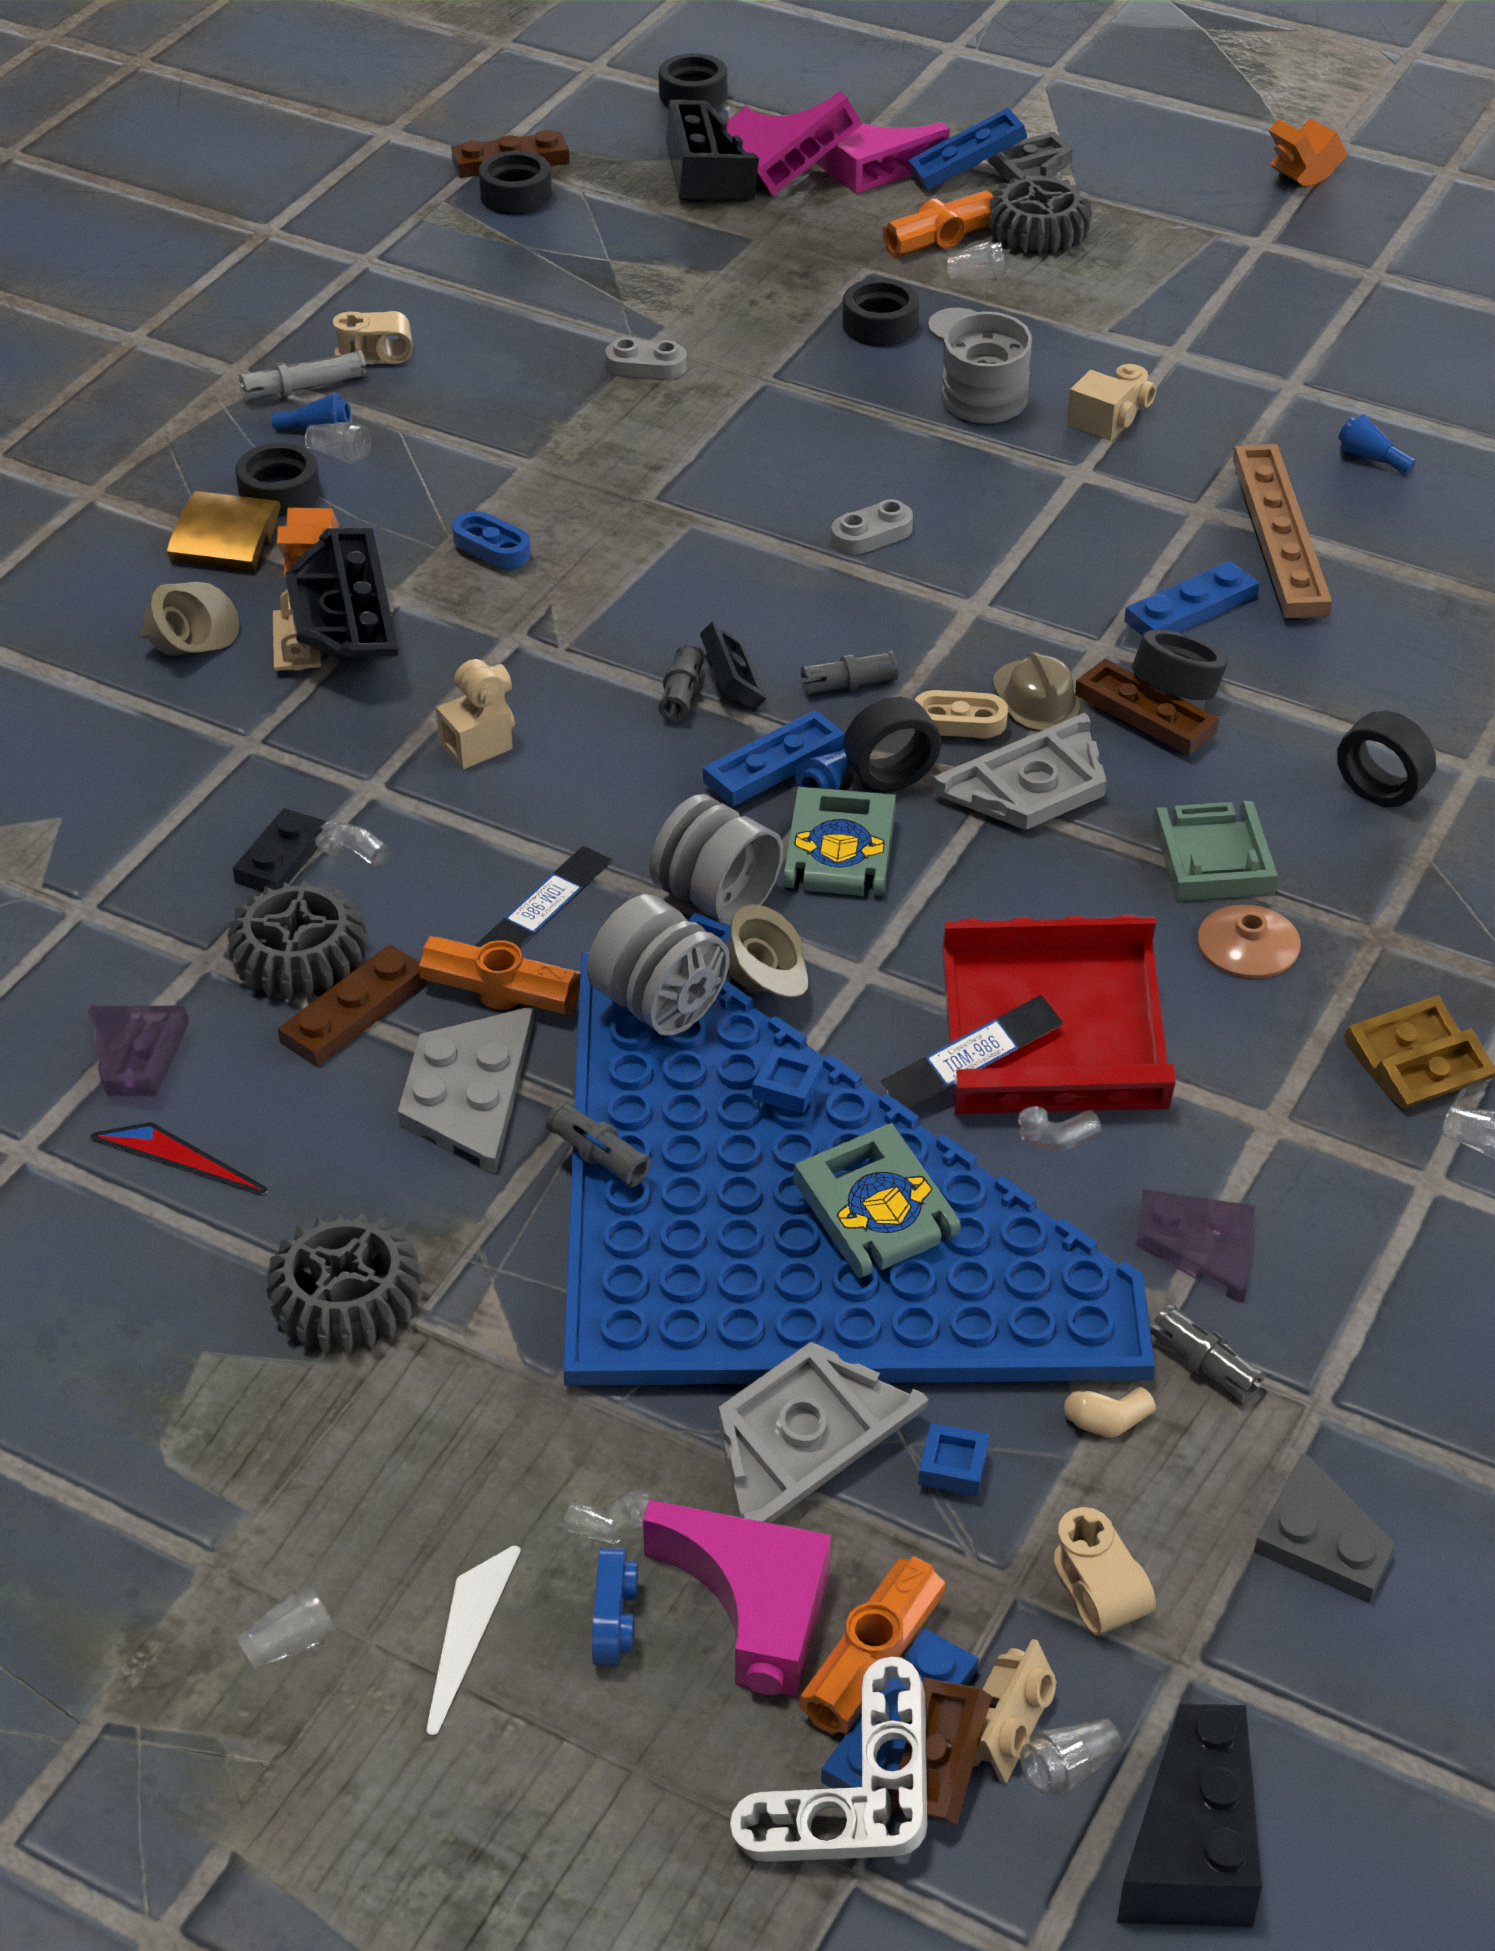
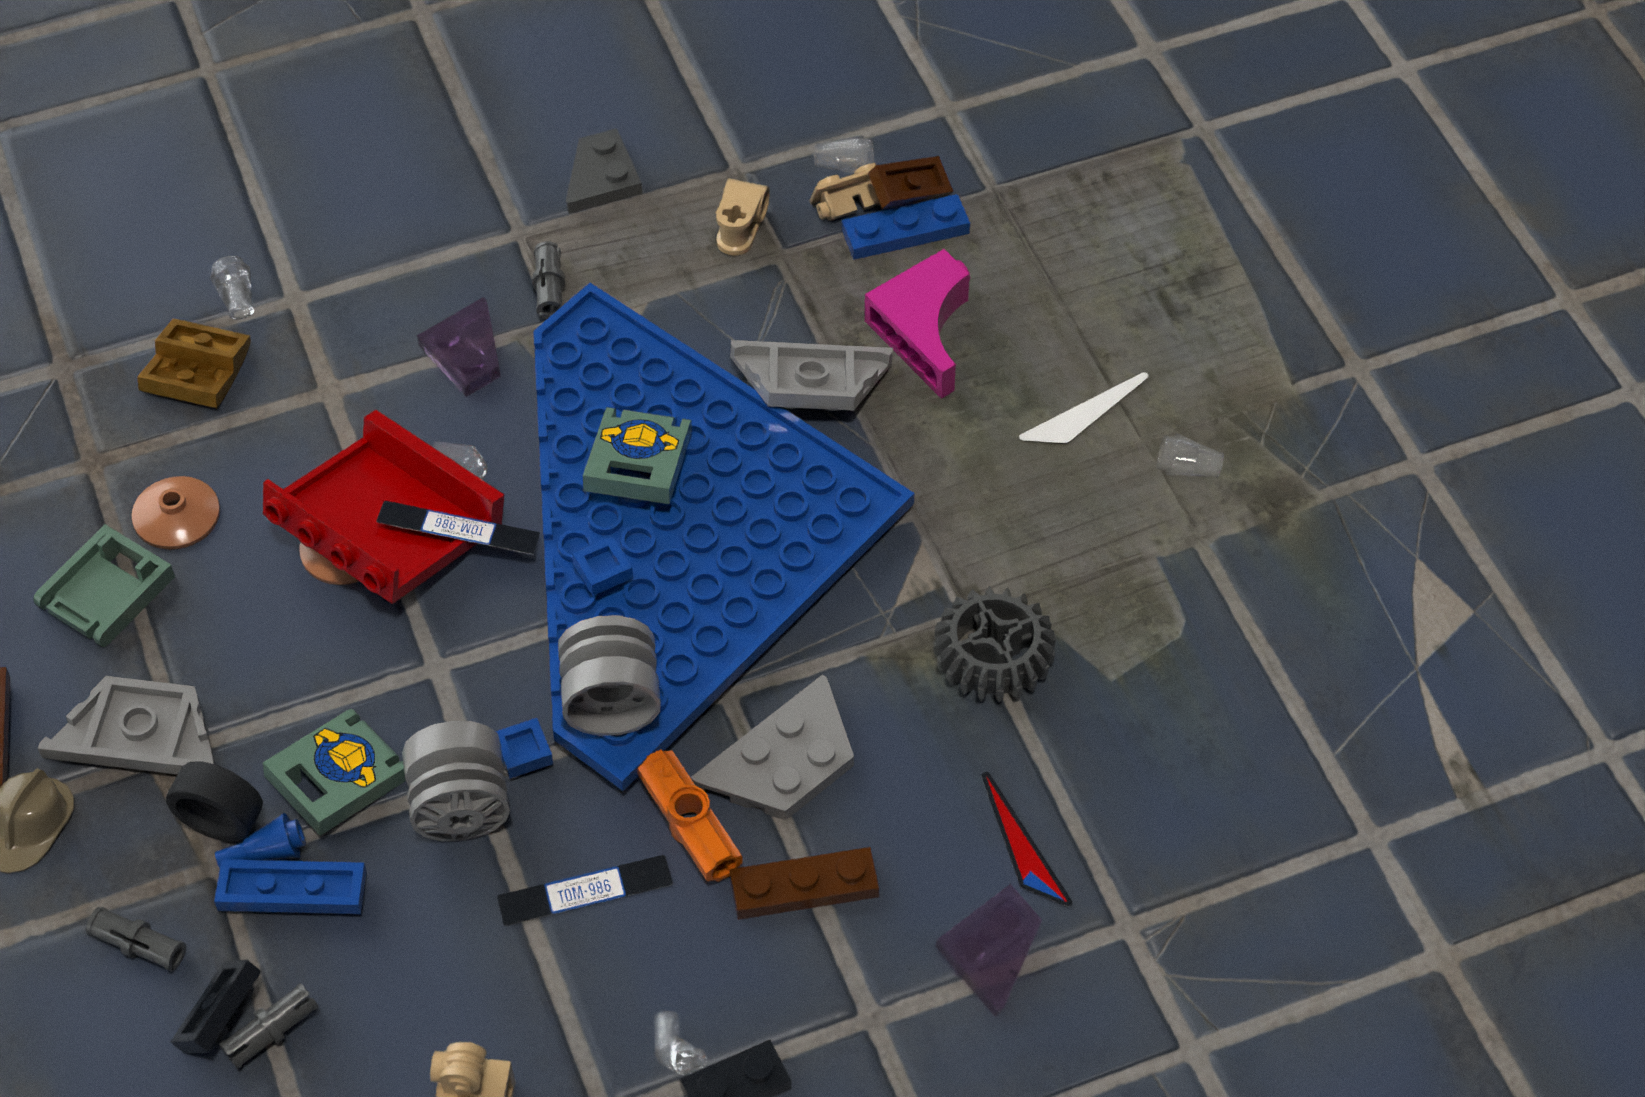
camera: 140 degrees left, 10 degrees up
(297, 939) = (799, 982): dark grey gear -> none
(611, 1627) = (1004, 356): blue plate -> none
(612, 1522) = (960, 405): clear arm -> none
(622, 1161) = (761, 608): dark grey pin -> none
(766, 953) = (505, 689): dark tan piece -> none
(862, 1805) = (975, 174): white beam -> none
(888, 1618) = (887, 251): orange piece -> none
(953, 1459) = (747, 314): blue plate -> none
(965, 713) = (116, 829): tan plate -> none
(1107, 1415) = (635, 286): tan arm -> none
(1199, 1831) = (822, 86): black wedge -> none

